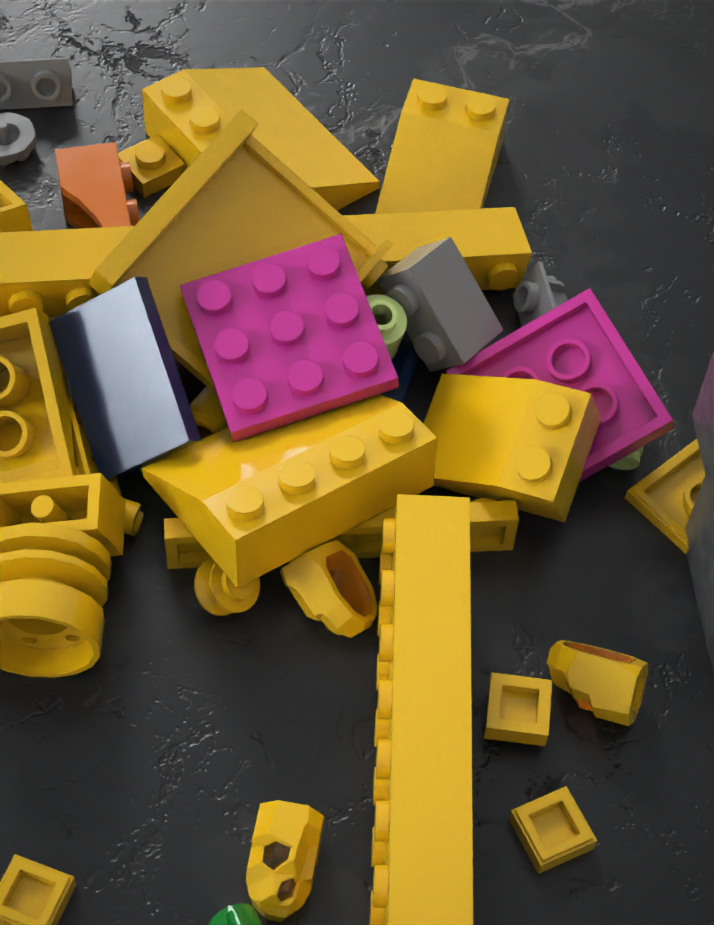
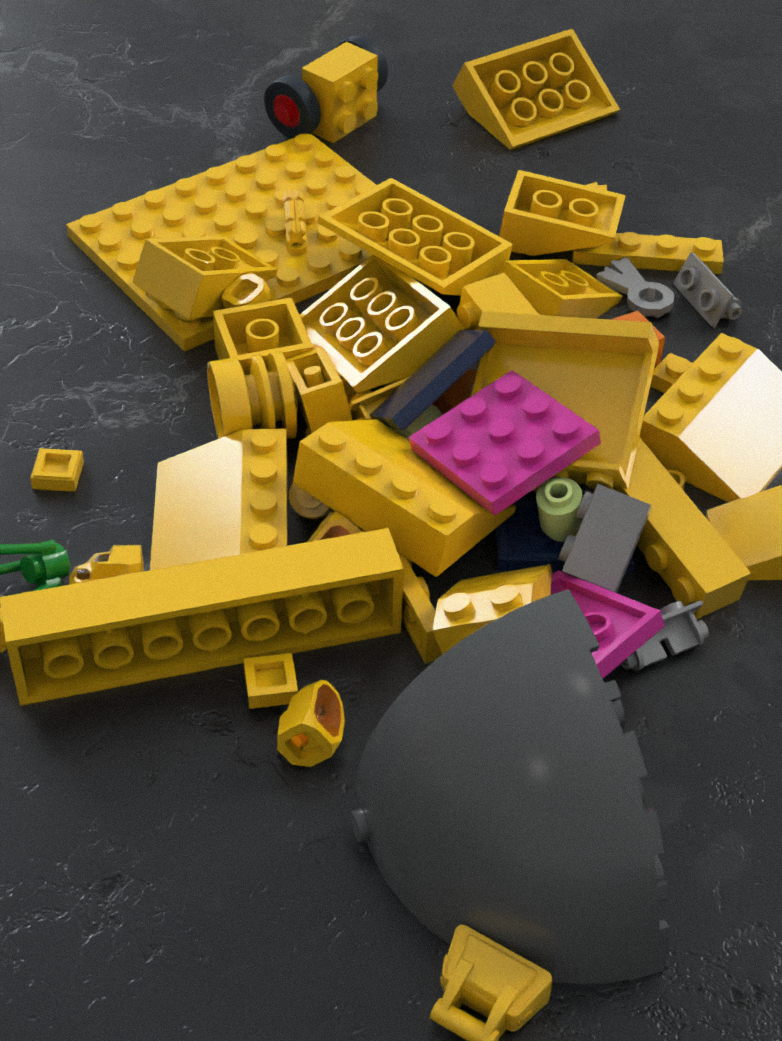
camera: 75 degrees right, 10 degrees down
(218, 695) = (222, 499): none -> yellow slope
(552, 829) = (180, 726): yellow tile -> none

